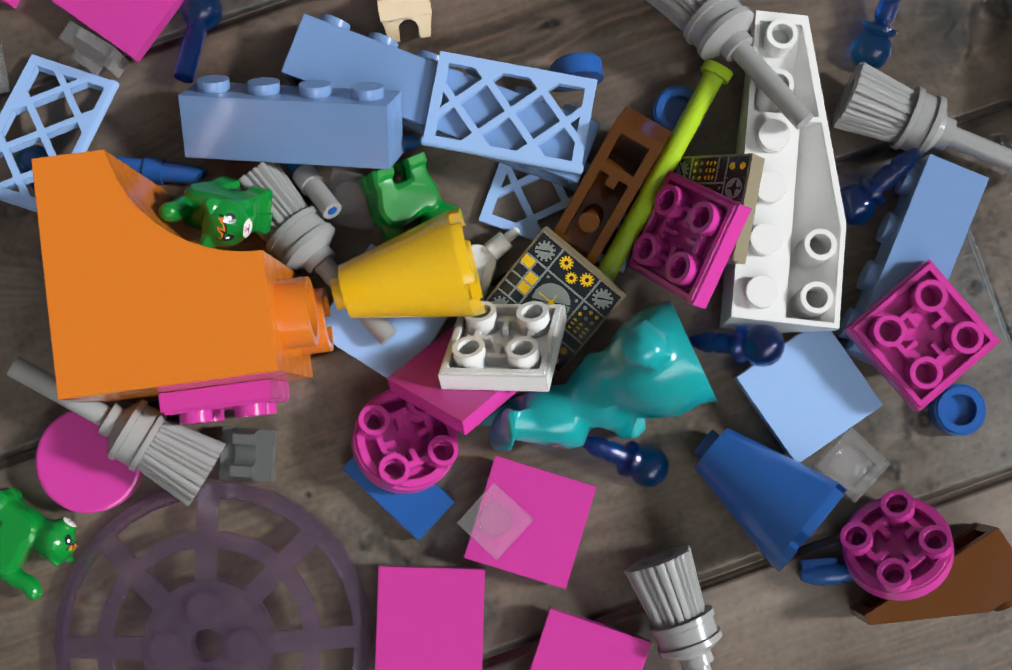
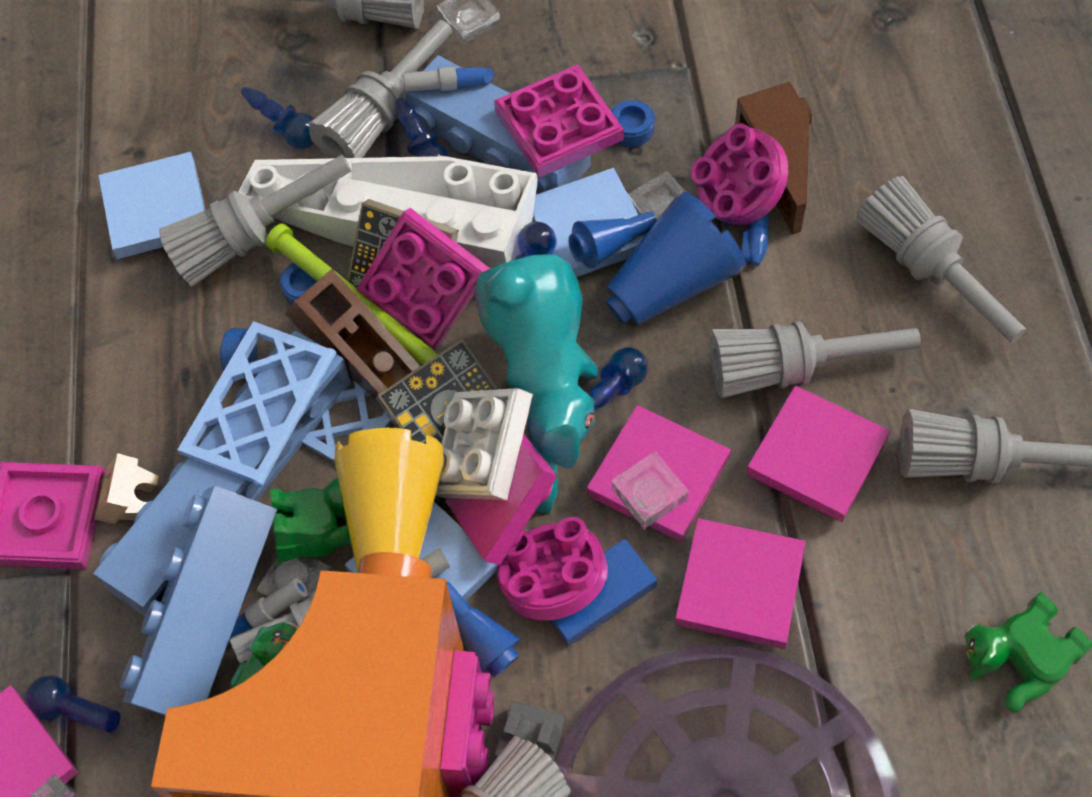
camera: 70 degrees left, 25 degrees down
(320, 396) = (483, 636): none -> blue cone
(776, 411) = (598, 239): none -> blue cone
(951, 198) = (447, 78): none -> light grey piece

